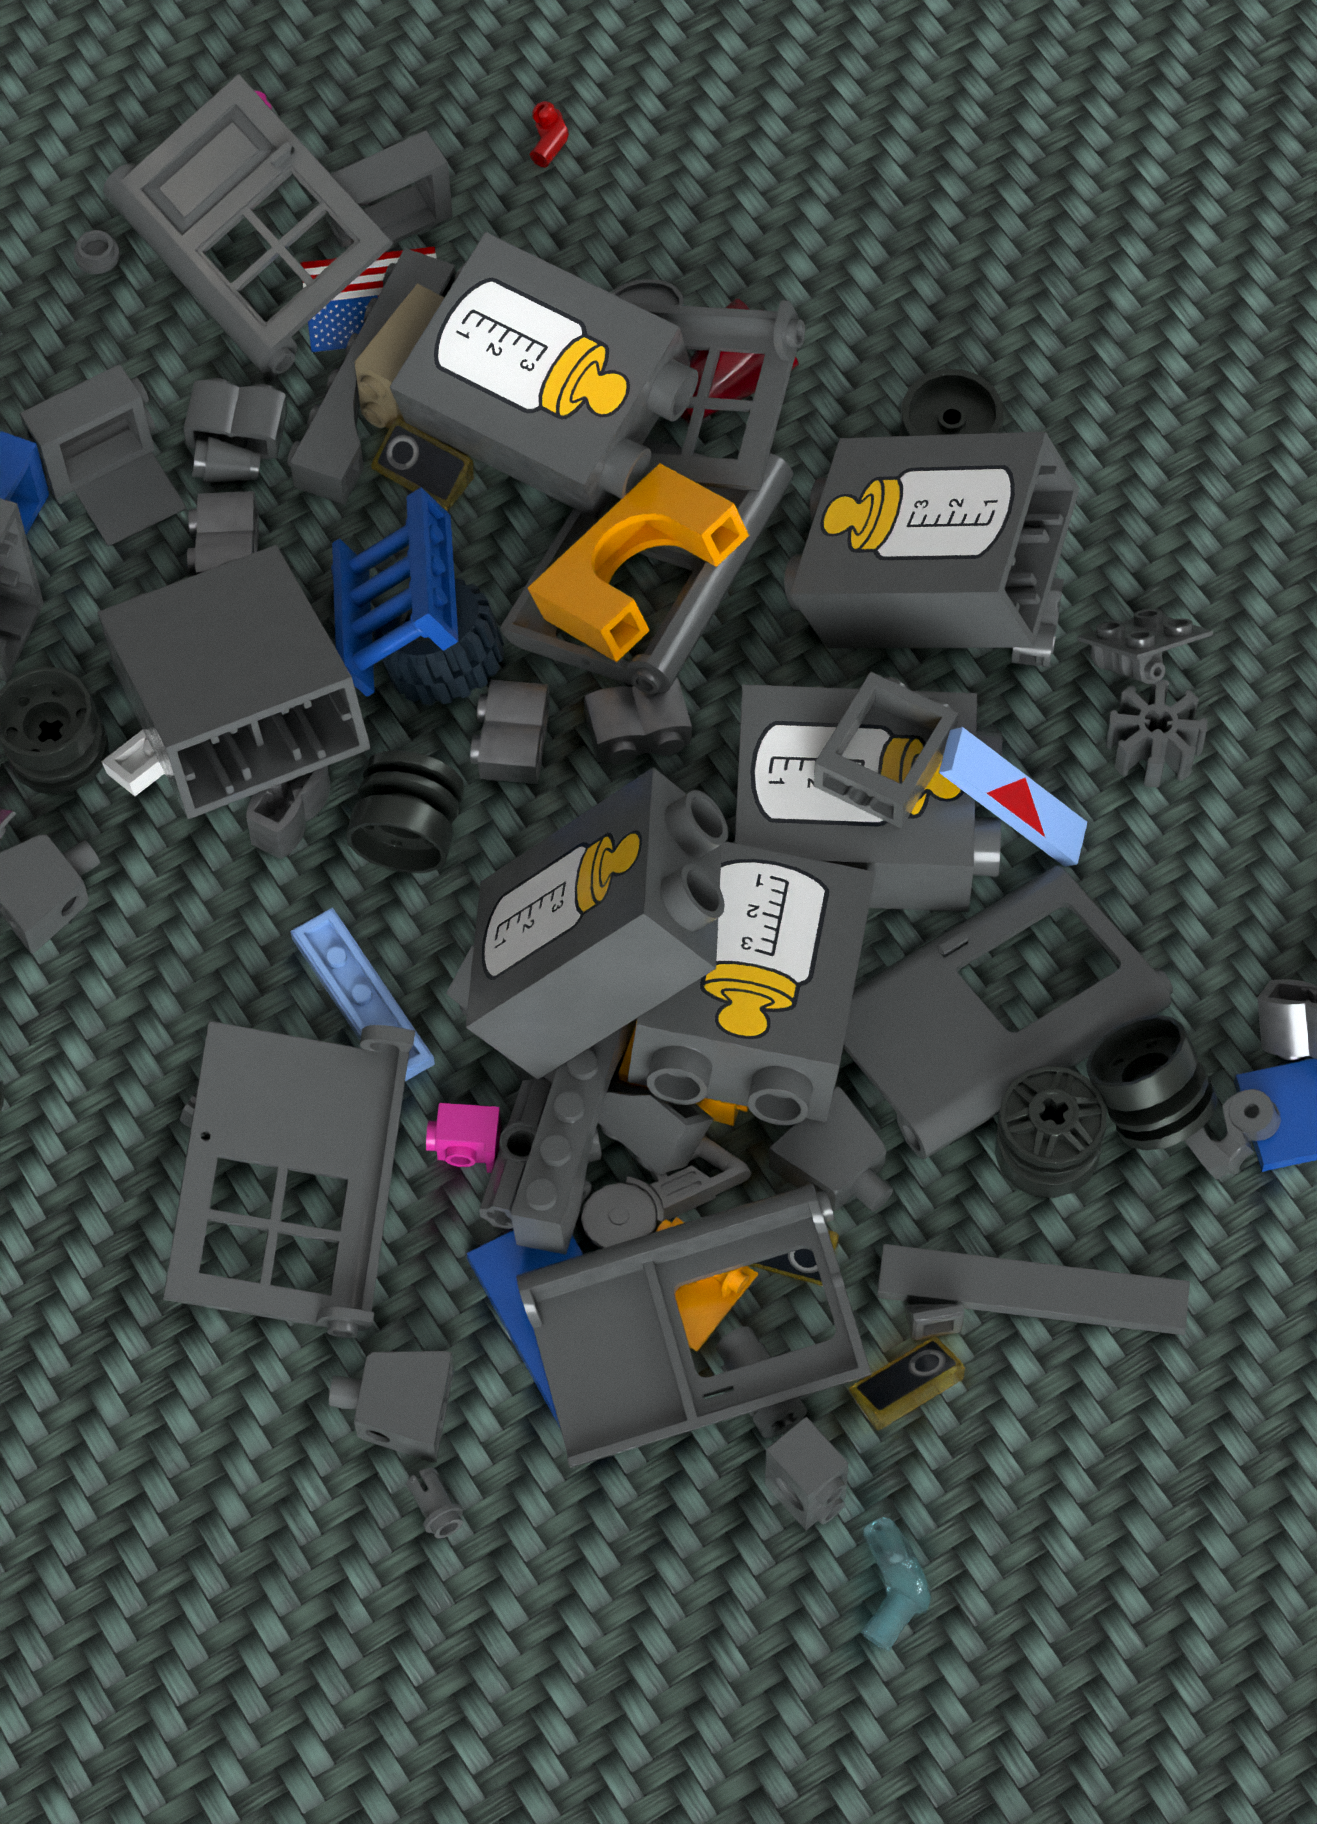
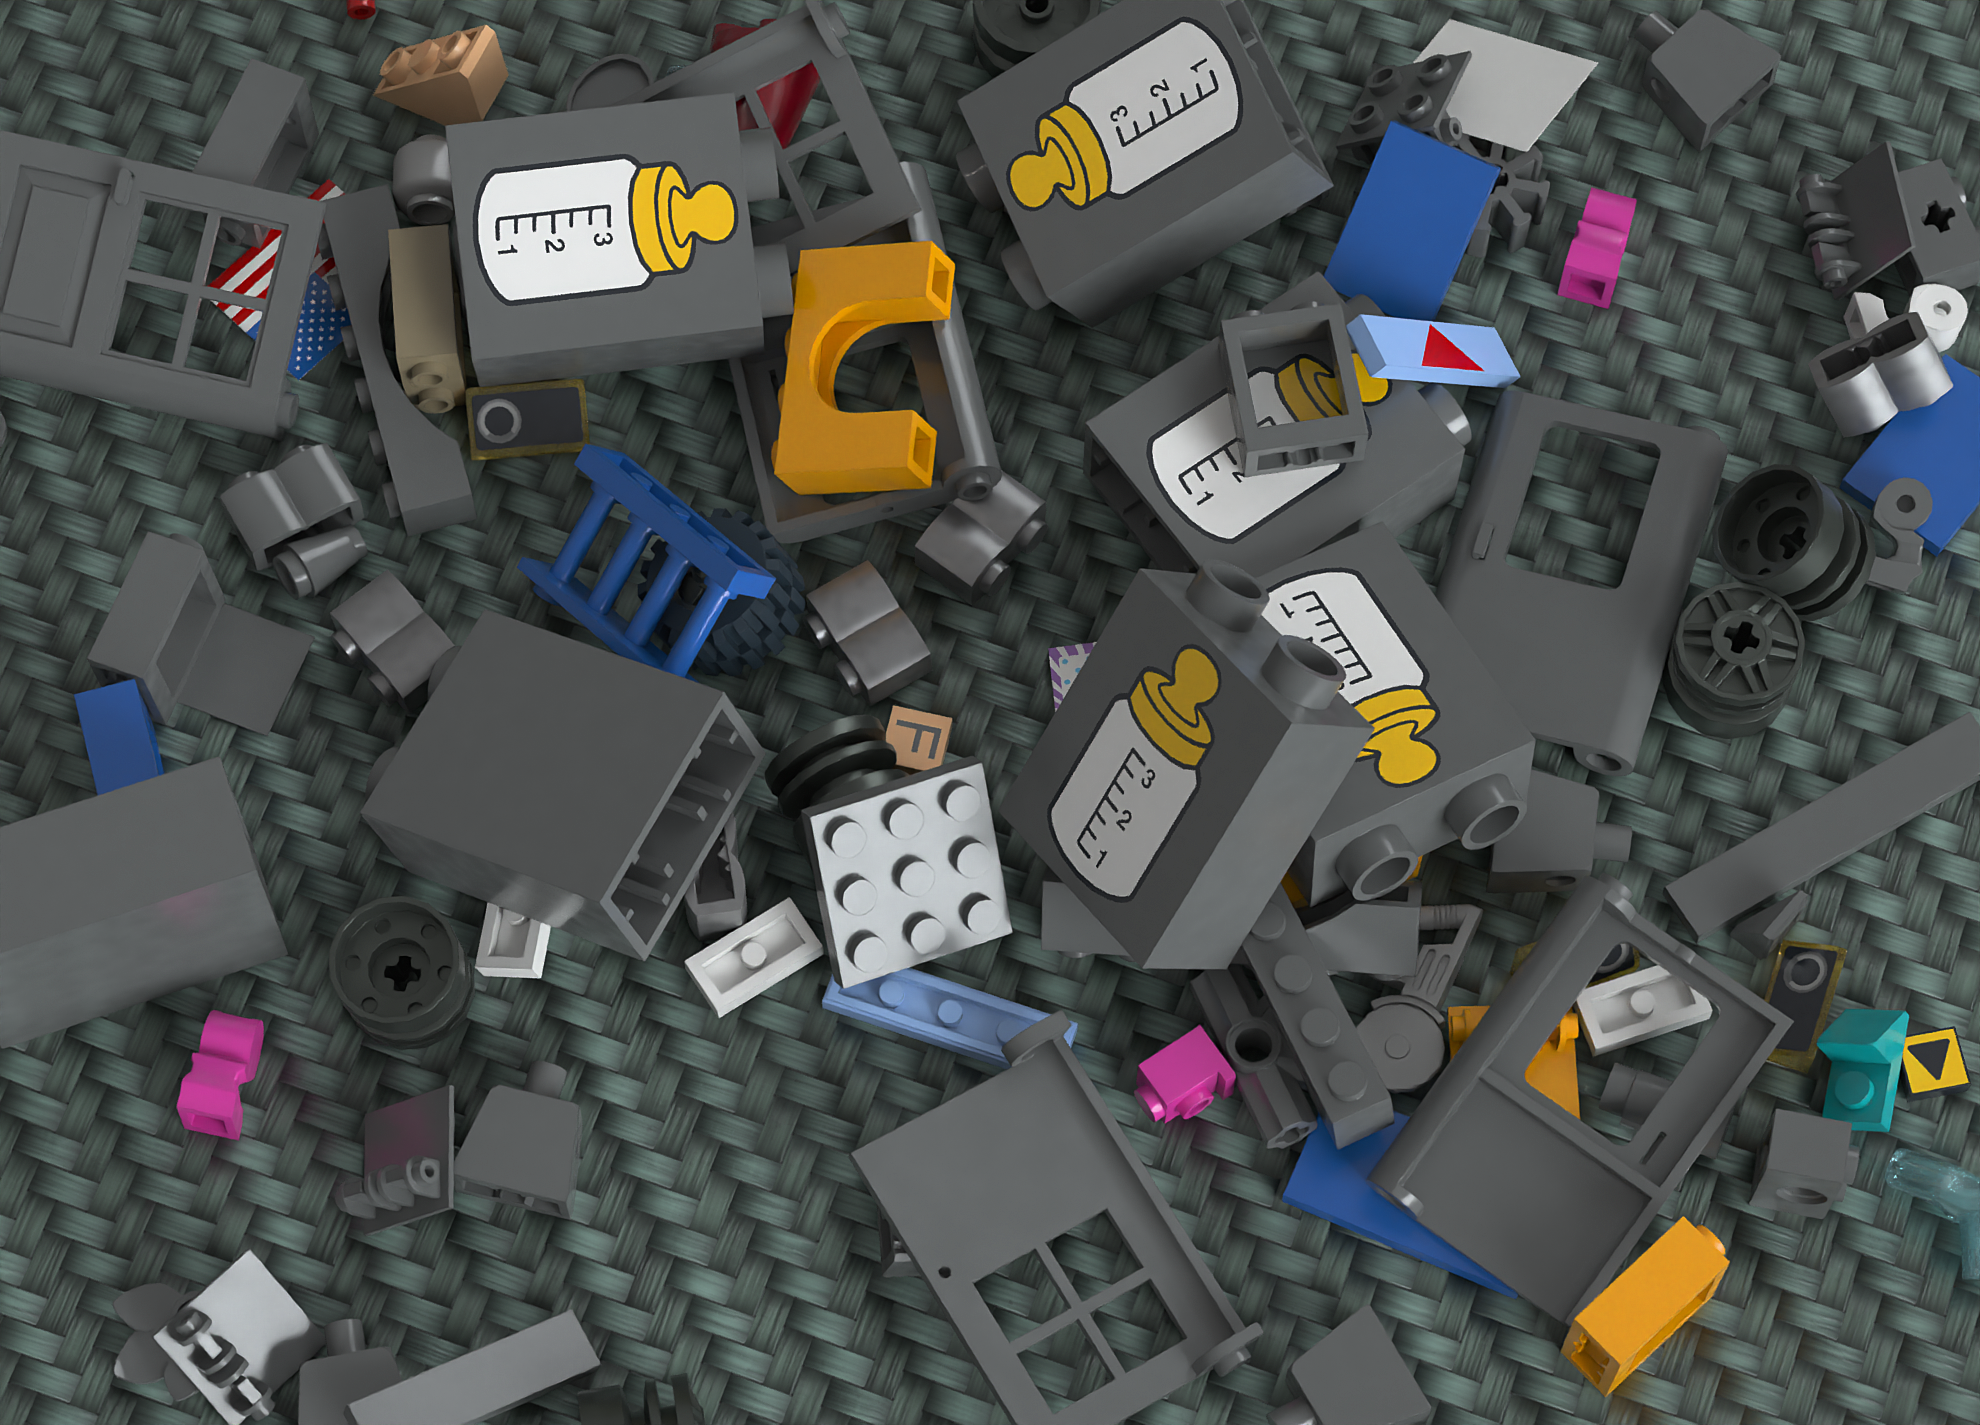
camera: 40 degrees left, 5 degrees up
(272, 875) = (754, 957): none -> white plate
(395, 881) = (907, 871): none -> plate
(487, 819) = (918, 739): none -> light nougat tile
(550, 226) = (446, 77): none -> light nougat slope
(627, 1485) = (1645, 1305): none -> light orange window
(792, 1304) = (1637, 1009): none -> white plate
(921, 1445) = (1865, 1066): none -> teal slope
(963, 1484) = (1933, 1065): none -> tile
(1078, 714) = (1411, 224): none -> blue tile
(1184, 818) = (1597, 248): none -> dark pink leg
(1222, 669) = (1509, 84): none -> white sticker

